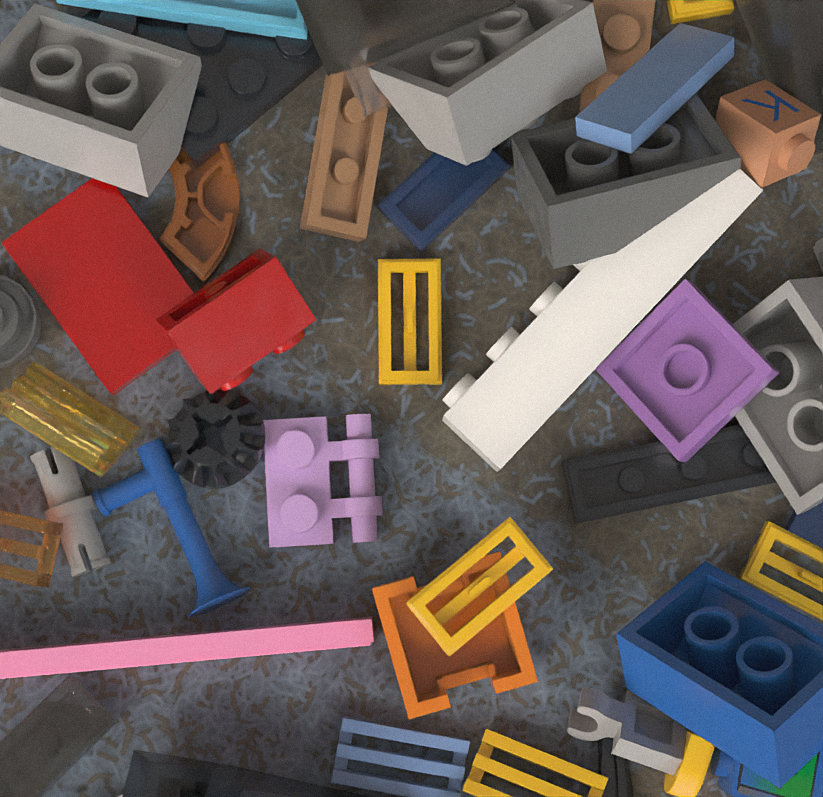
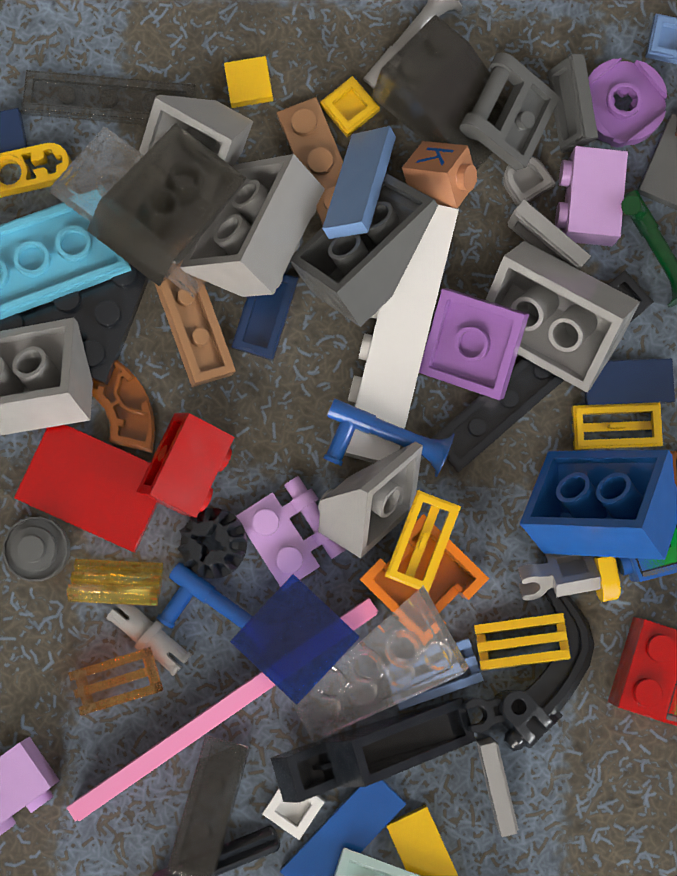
camera: 25 degrees left, 0 degrees up
(248, 618) = (295, 639): none -> clear blue tile
(347, 720) = (388, 666): none -> clear wing
(409, 268) = (308, 438): yellow tile -> none
(443, 497) = (371, 501): none -> light grey slope
(479, 379) = (354, 418): none -> blue piece

